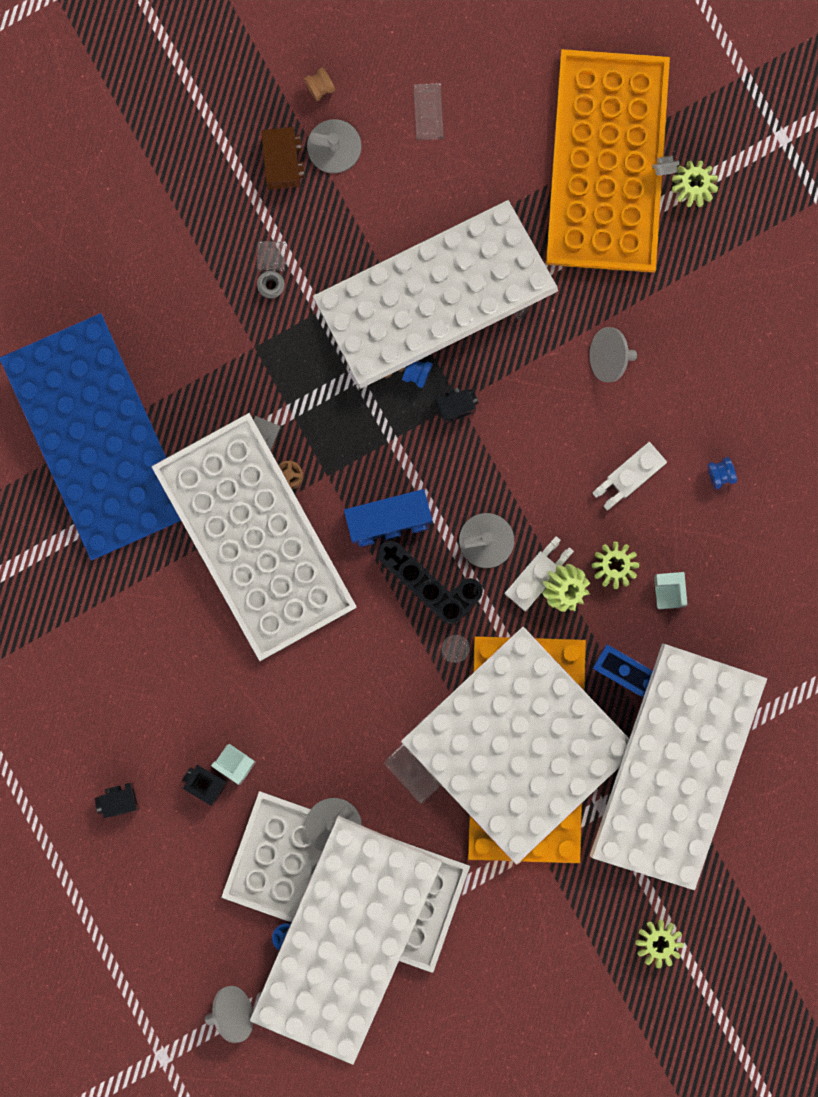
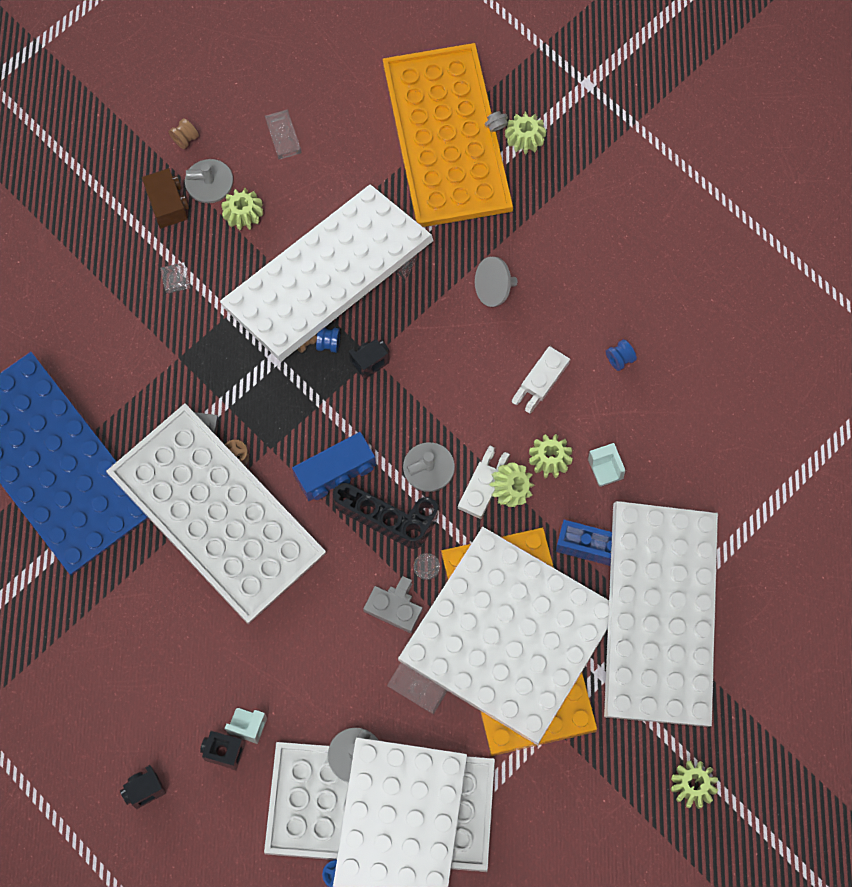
camera: 15 degrees left, 15 degrees down
(270, 276) = (178, 295): light grey plate -> none
(357, 185) = (242, 209): none -> yellowish green gear
(412, 681) = (394, 606): none -> light grey hinge

